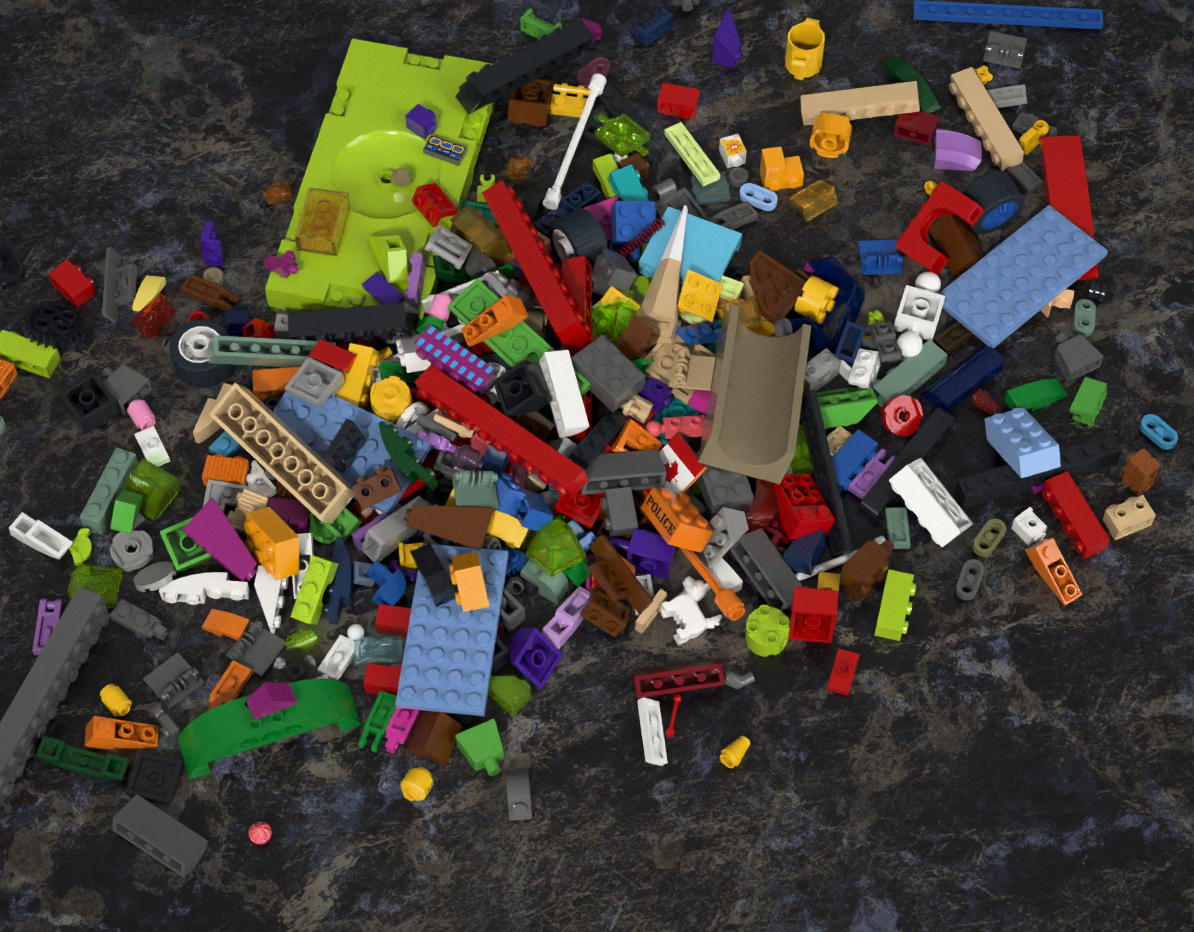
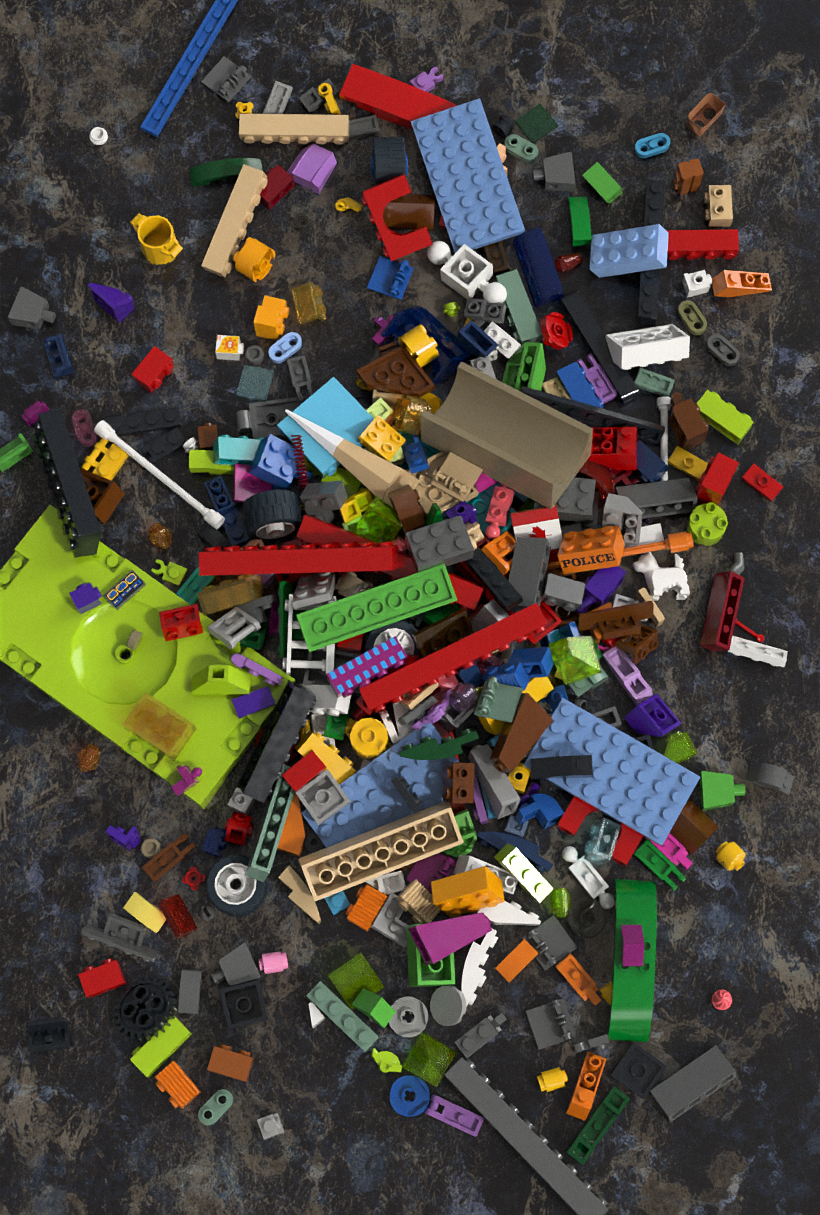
camera: 65 degrees left, 15 degrees up
(30, 416) = (231, 1063): none -> dark orange brick
(39, 536) = (364, 1093): white slope -> none
(49, 569) = (398, 1094): none -> blue plate
(89, 356) = (189, 991): none -> dark grey slope
(97, 468) = (315, 1014): none -> white slope
(152, 446) = (309, 964): white plate -> none
(426, 321) = (316, 676): green plate -> none
(439, 307) = (304, 659): bright pink brick -> none
(468, 576) = (586, 739): light orange brick -> none
(495, 320) = (349, 617): orange slope -> none
(522, 389) = (427, 622): black slope -> none
(565, 393) = (445, 589): white brick -> none
(622, 135) = (173, 431): clear neon green plate -> none
(692, 154) = (215, 382): yellowish green plate -> none
(734, 752) = (800, 595): yellow cone -> none
(782, 327) = (442, 385): dark grey tile -> none
(1104, 209) = (426, 82): none -> medium lavender plate
(1120, 322) = (536, 123): none -> clear green piece

